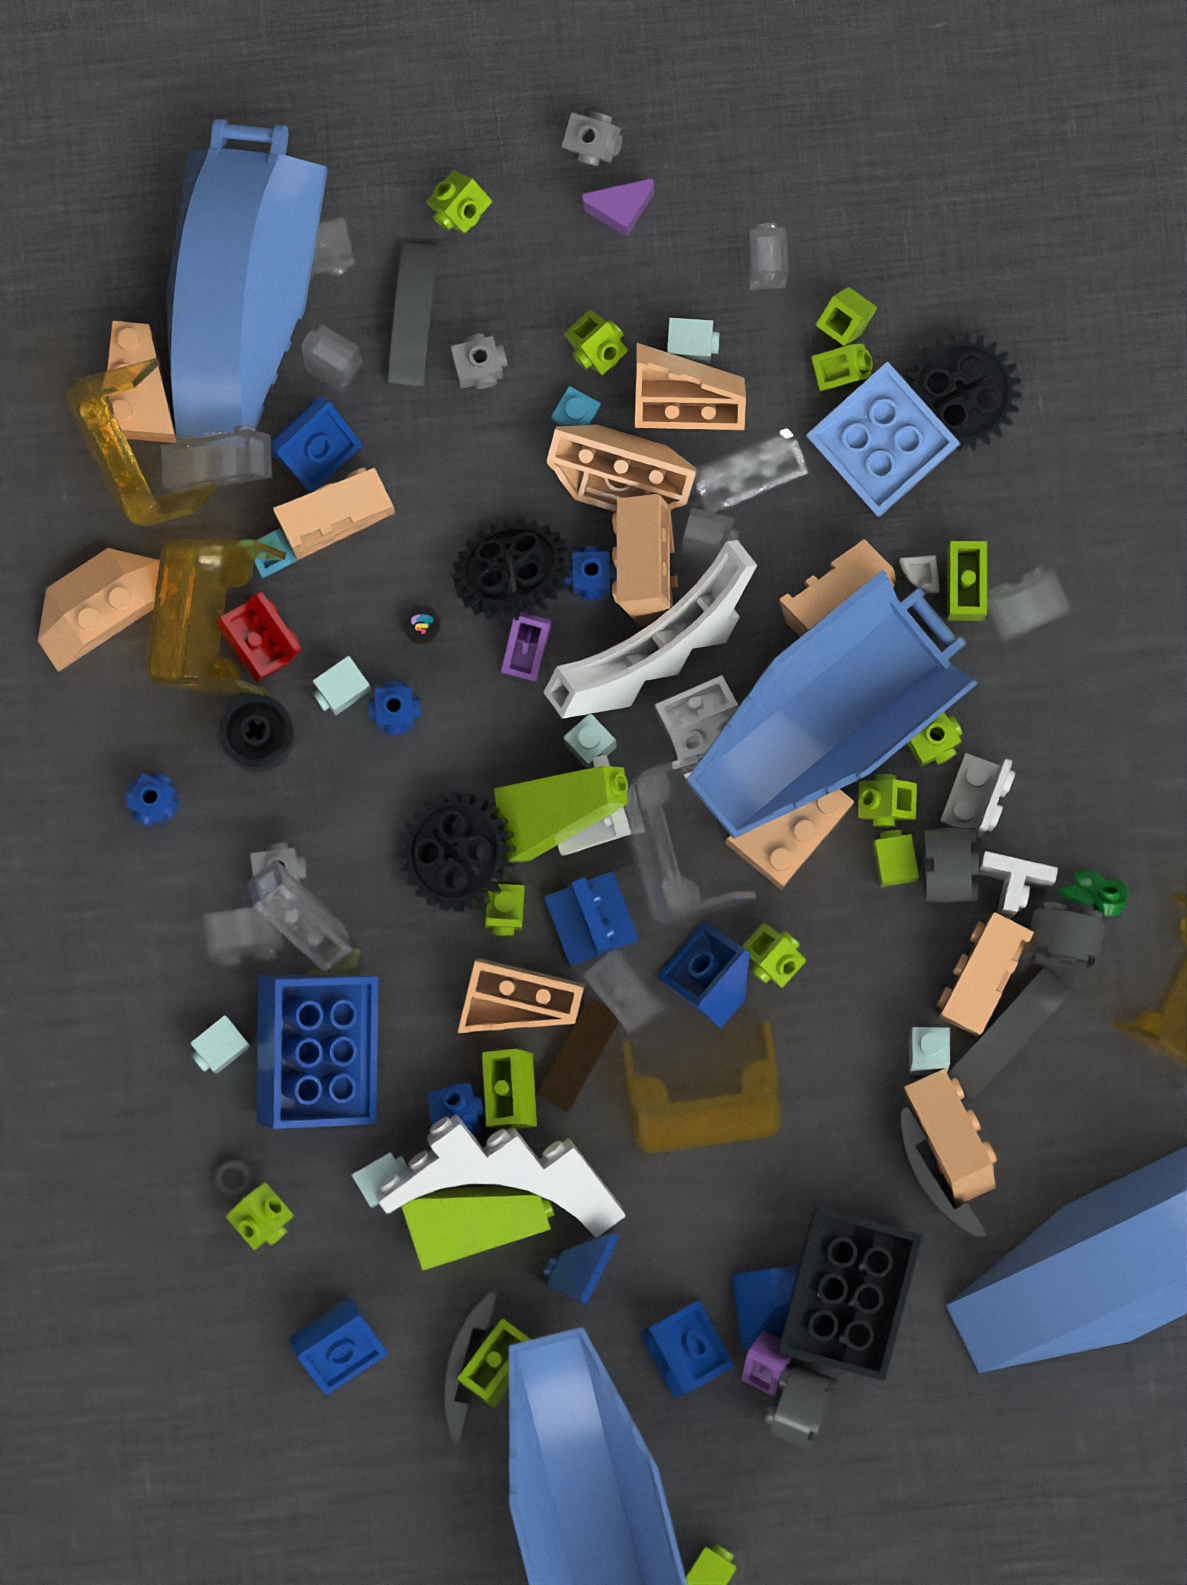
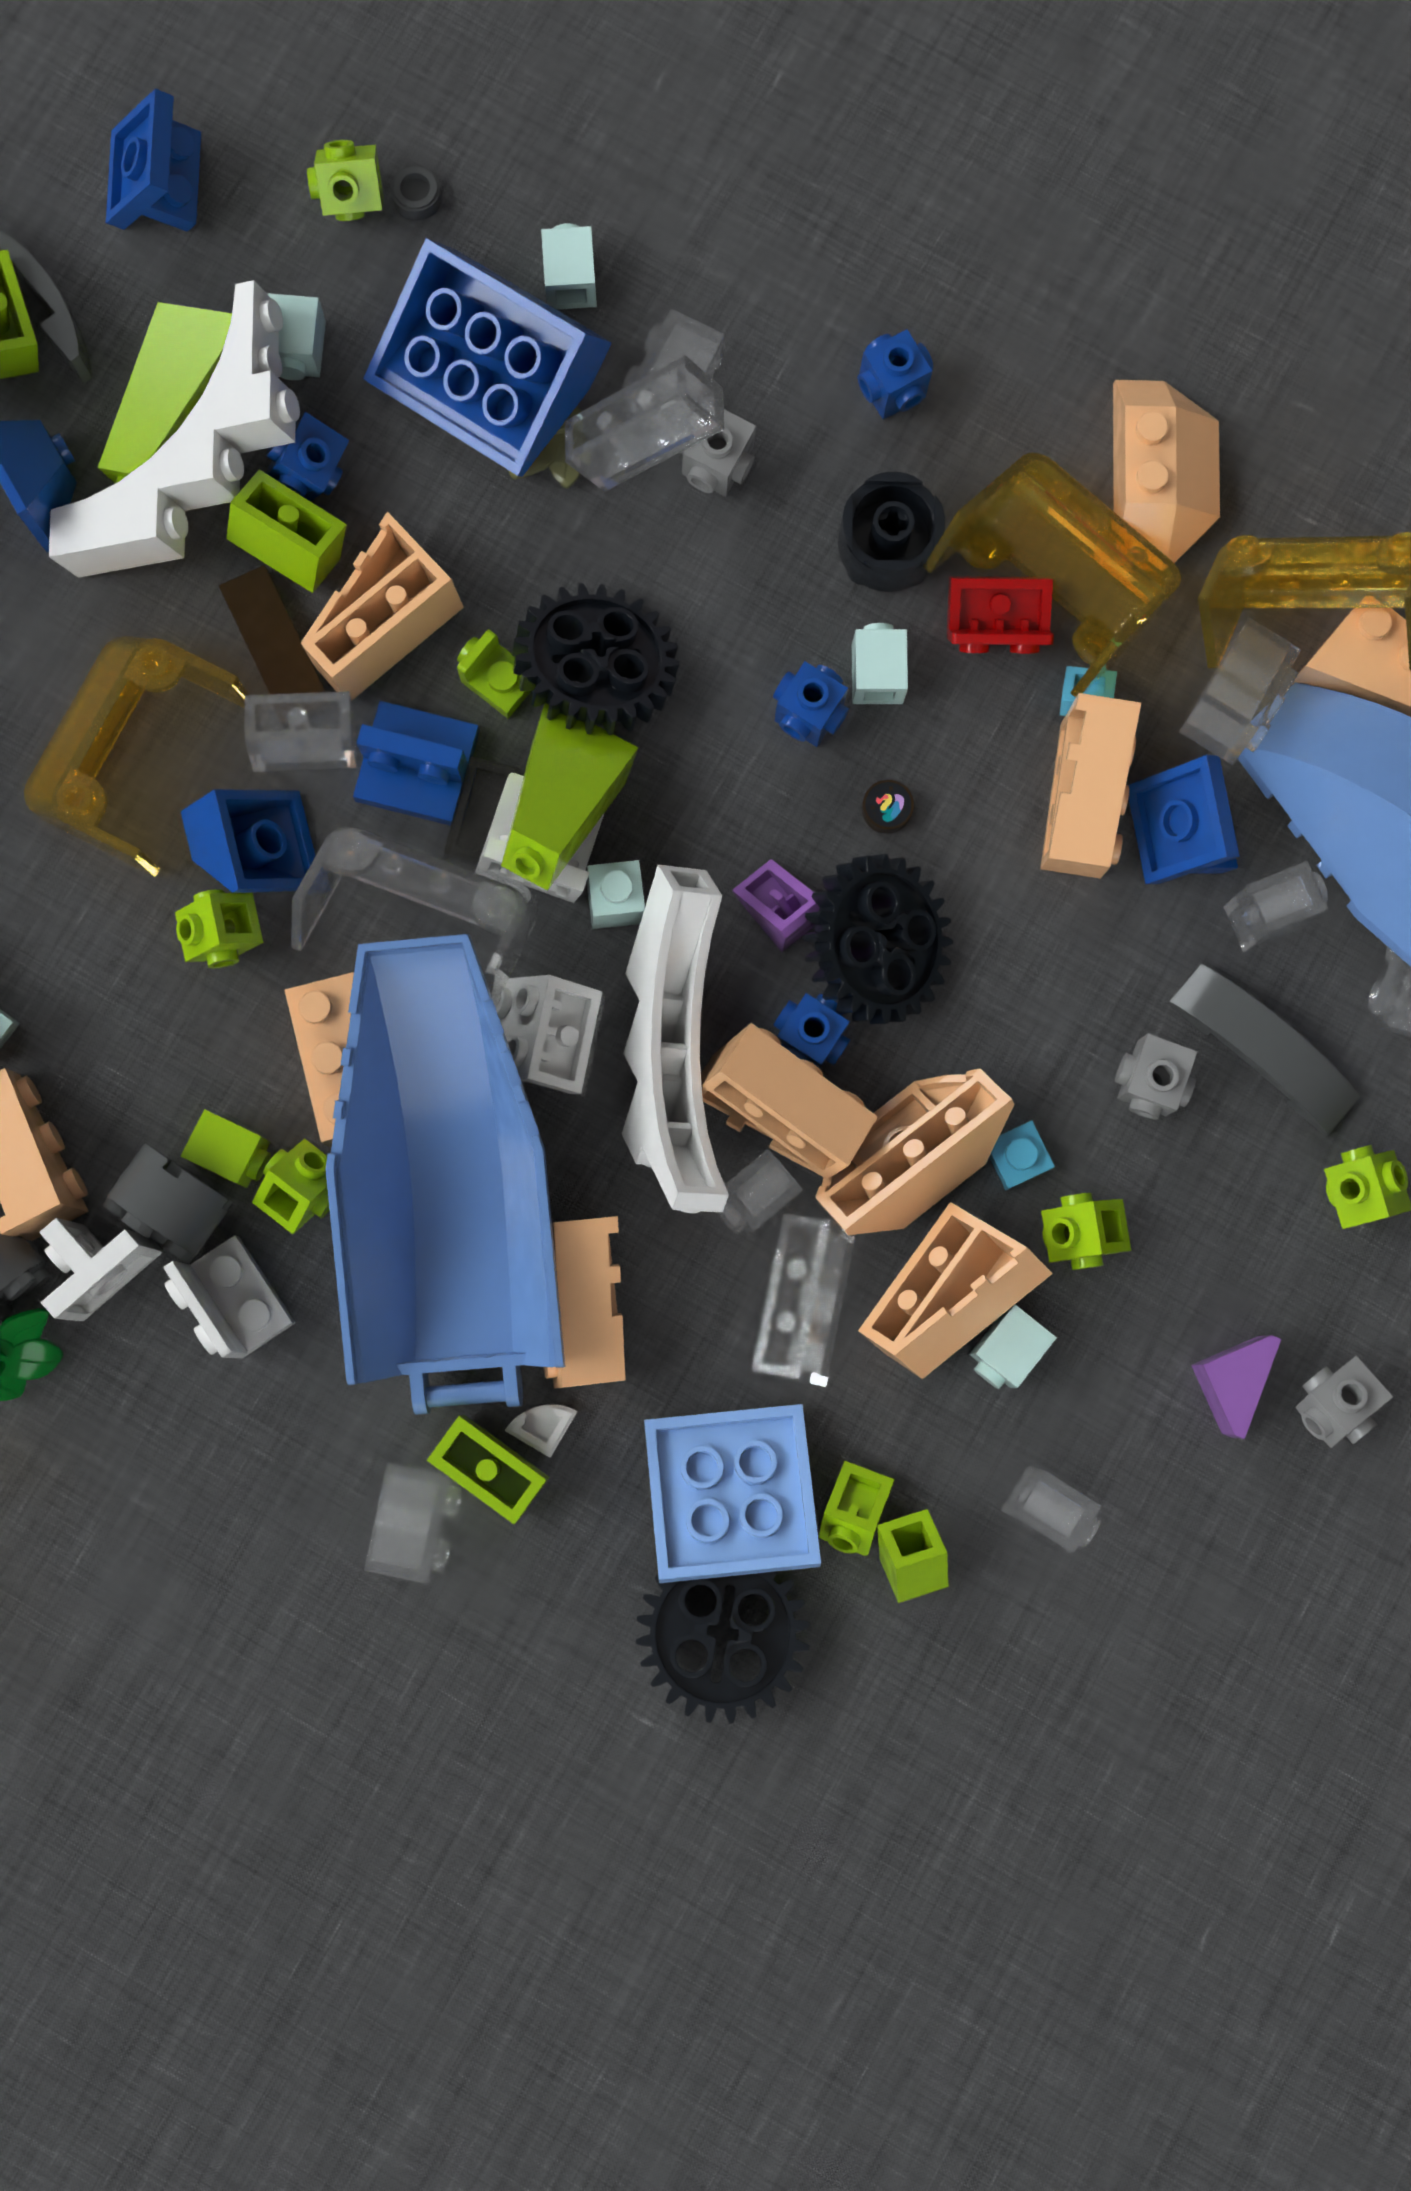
camera: 120 degrees right, 0 degrees up
(927, 750) = (312, 1294): lime brick -> none

